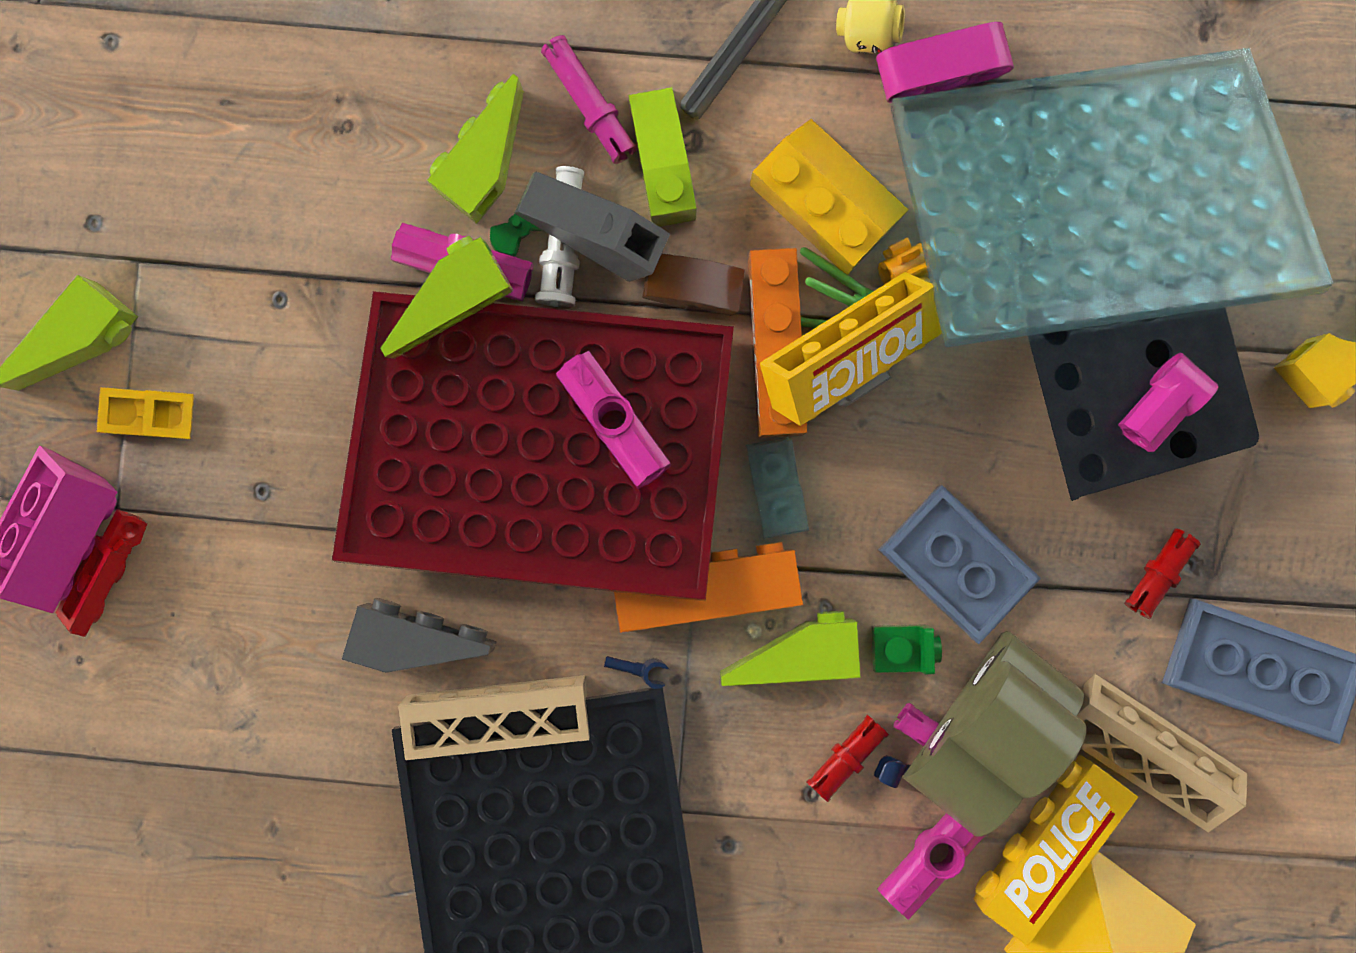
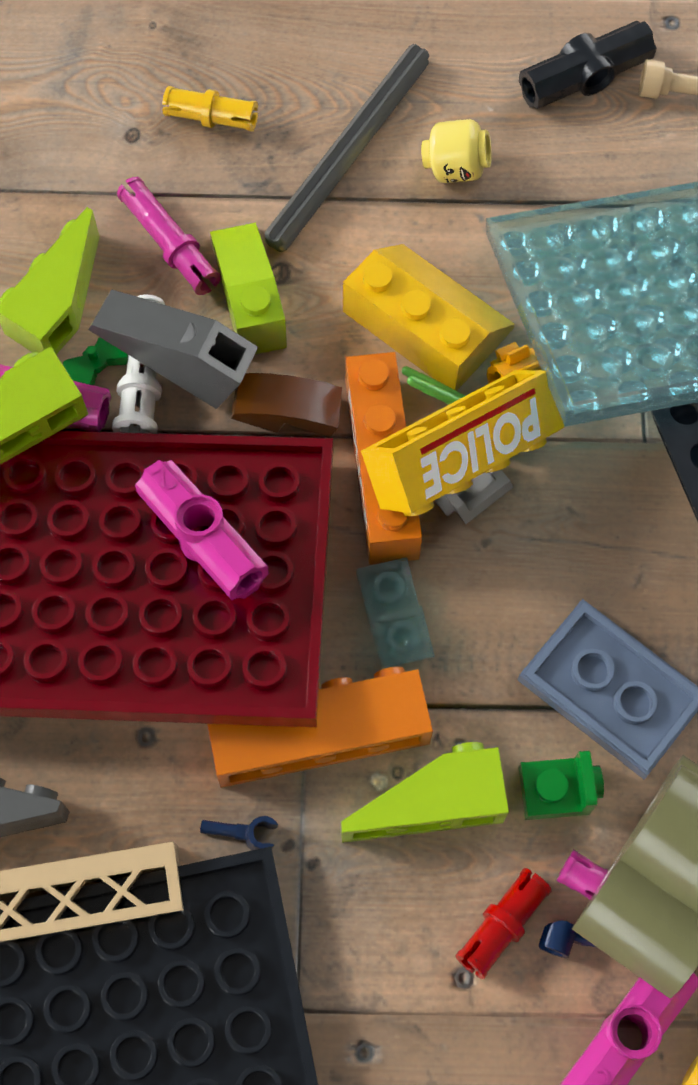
camera: 10 degrees left, 20 degrees down
(945, 61) = (537, 181): dark pink beam -> none

